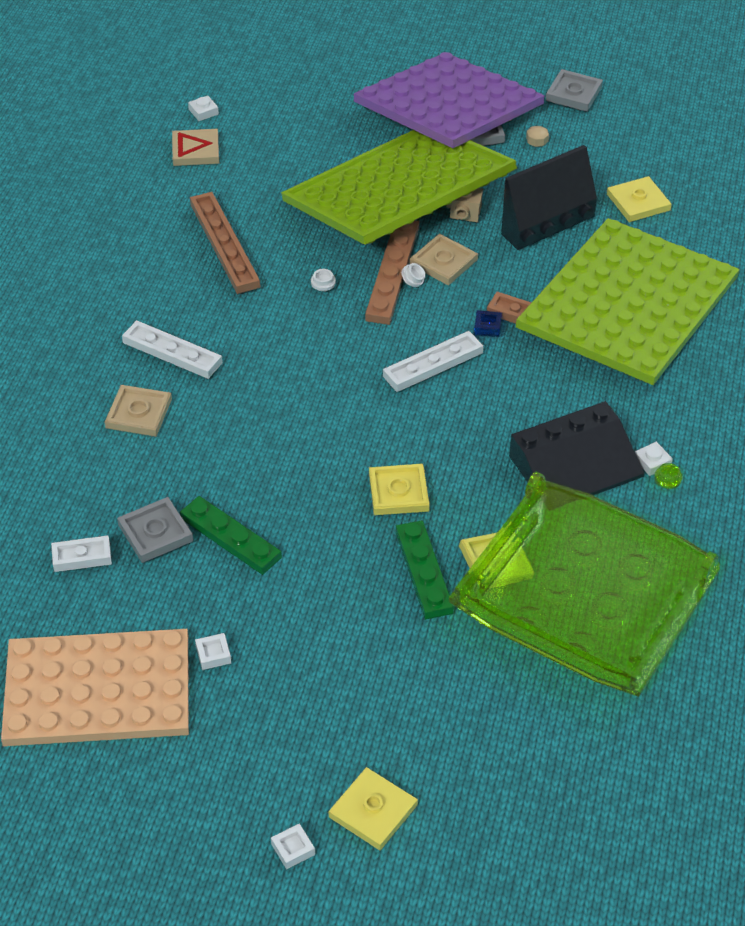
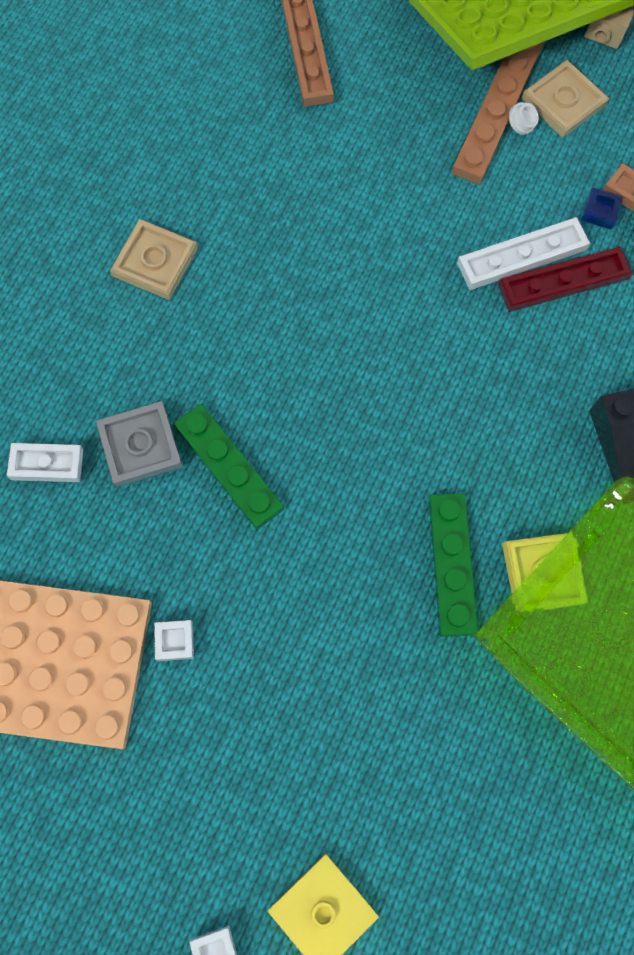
camera: 10 degrees right, 25 degrees up
(172, 349) = (210, 177): white plate -> none
(323, 280) = (411, 105): white plate -> none
(398, 489) = (444, 440): light yellow plate -> none
(469, 374) = (564, 279): none -> dark red tile

